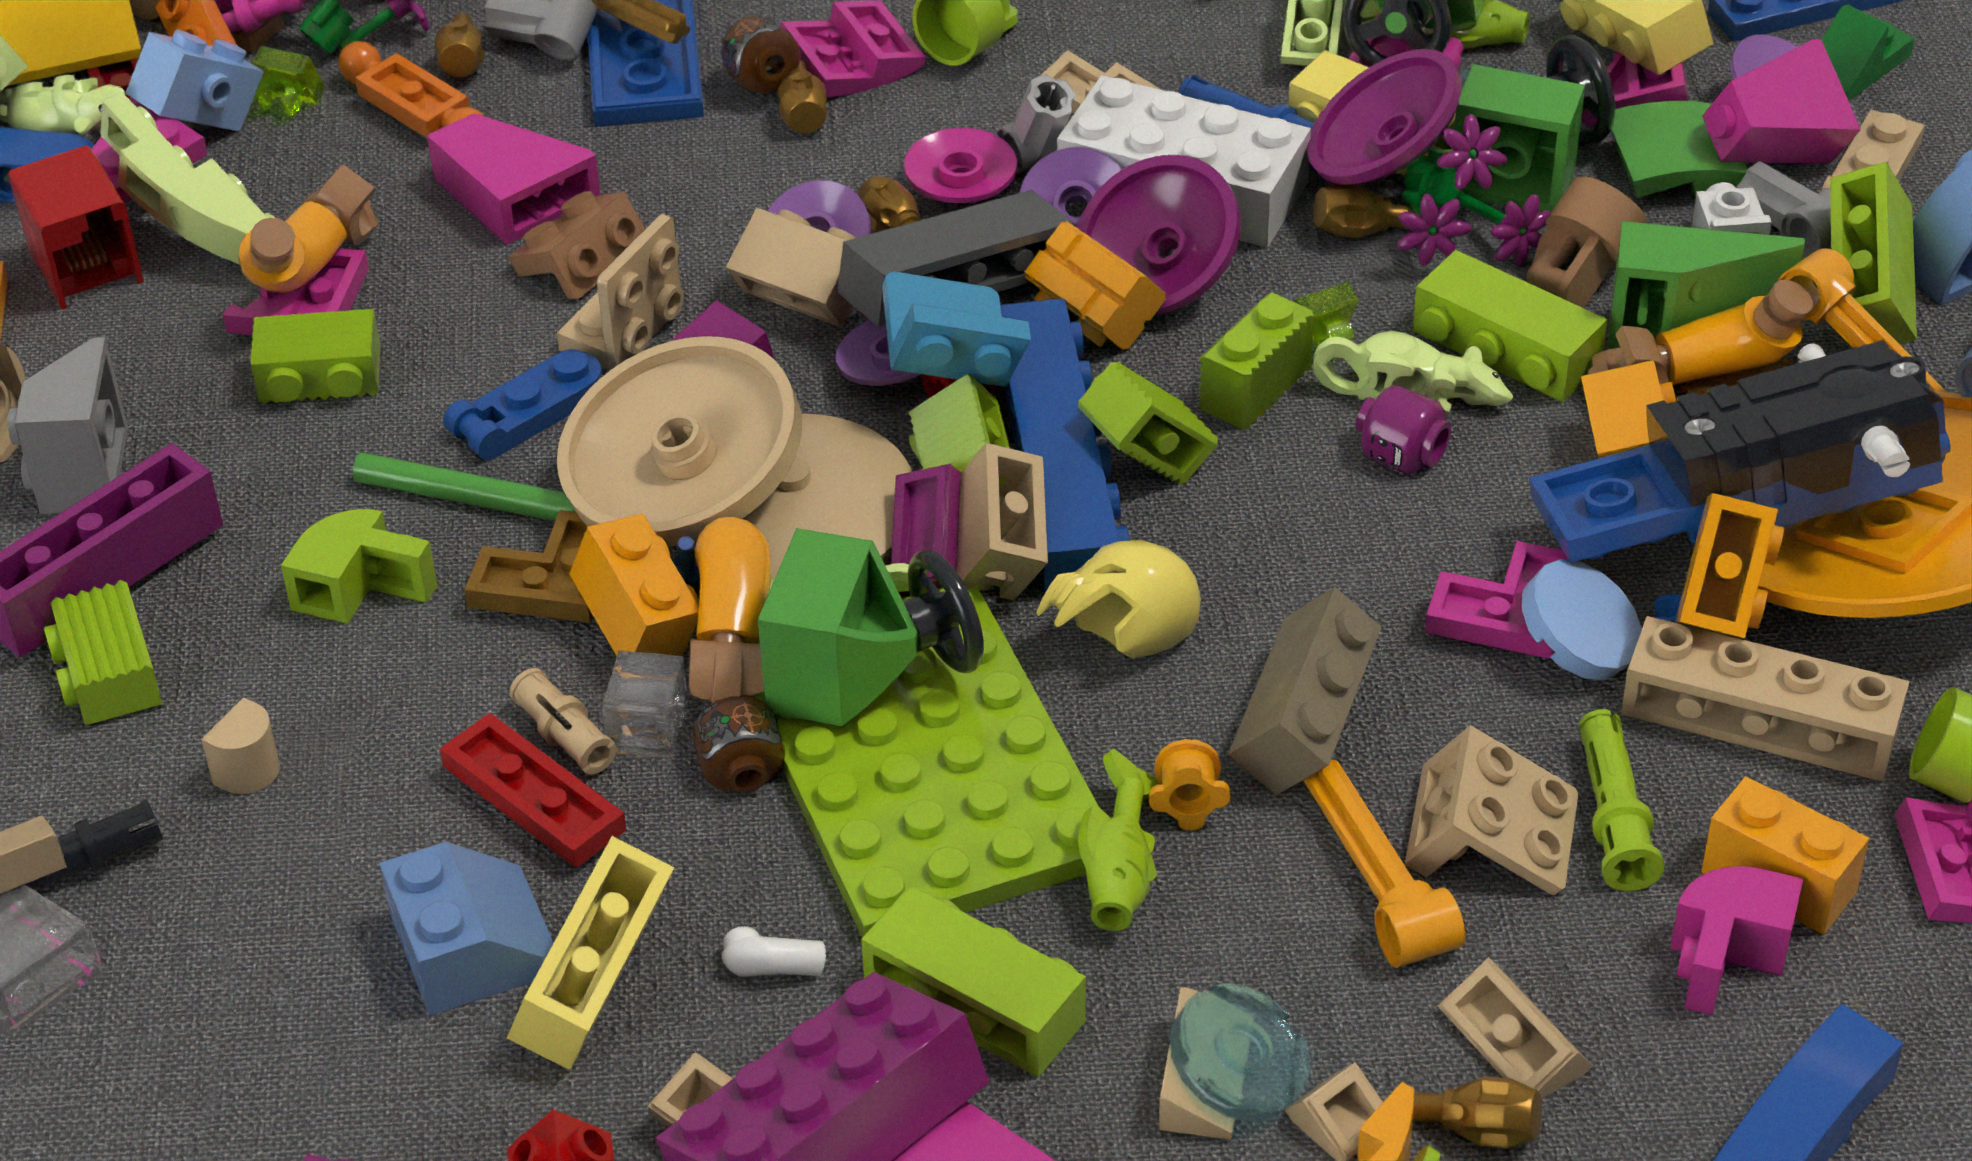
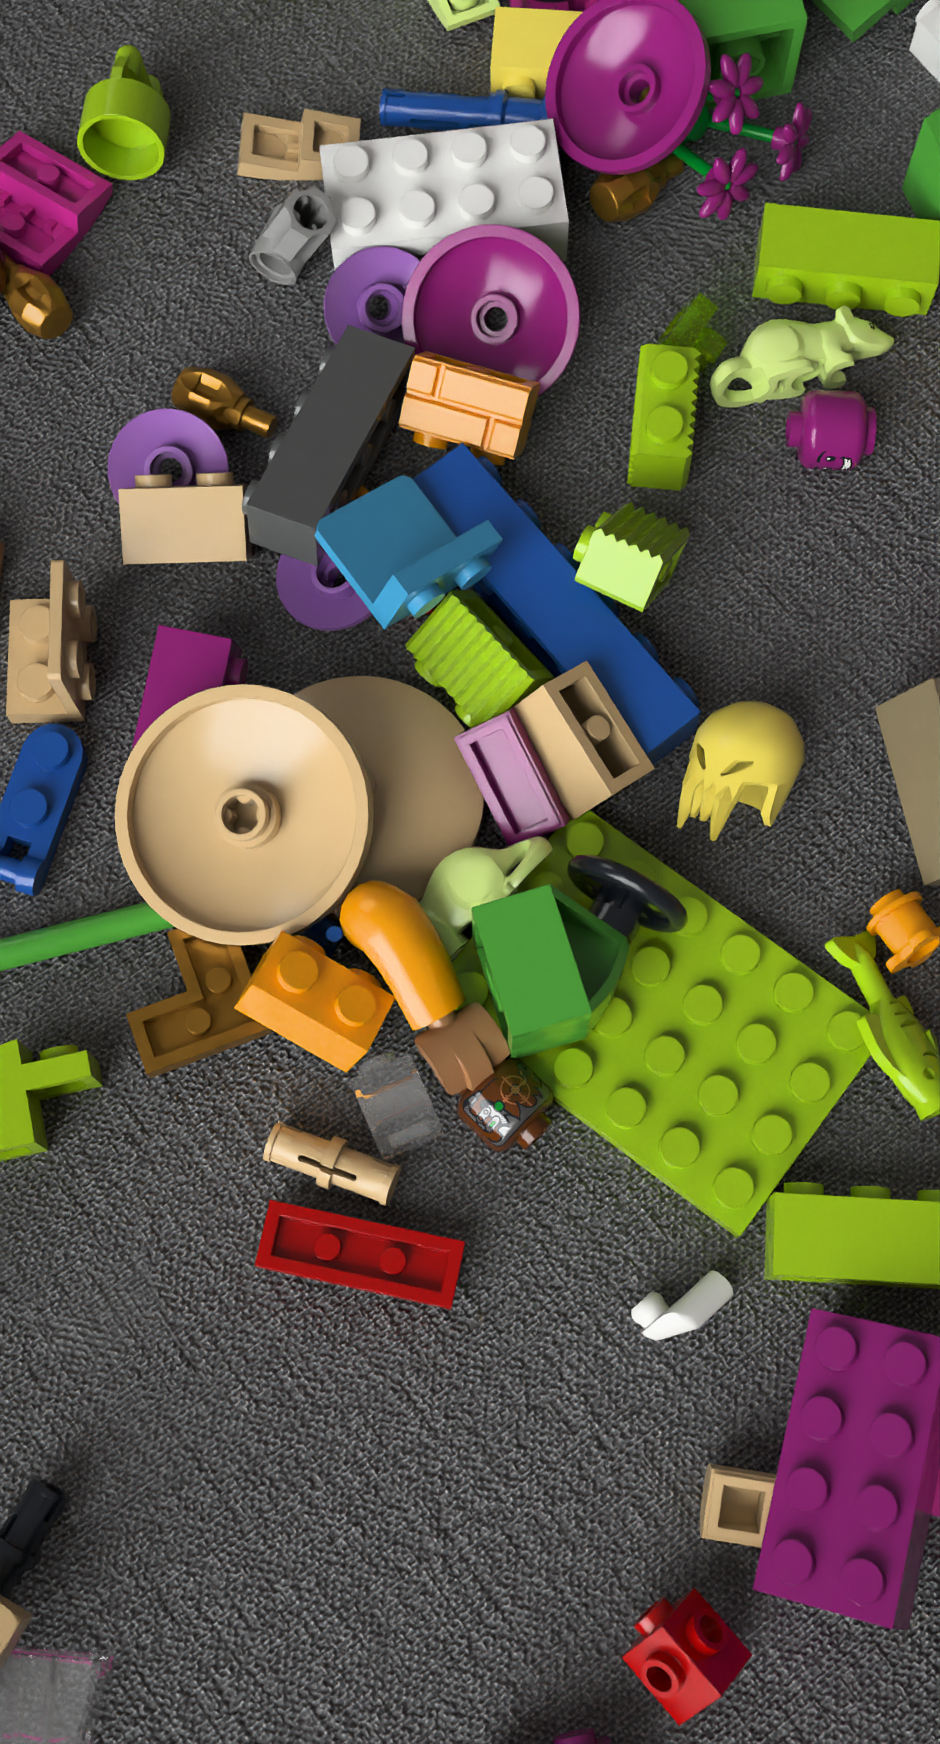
camera: 30 degrees left, 30 degrees up
(242, 750) = (75, 1364): tan brick -> none
(464, 923) = (413, 1433): medium blue slope -> none
(590, 953) = (552, 1418): light yellow brick -> none
(960, 165) = (240, 291): dark pink dish -> none
(1588, 226) = (855, 106): medium nougat piece -> none

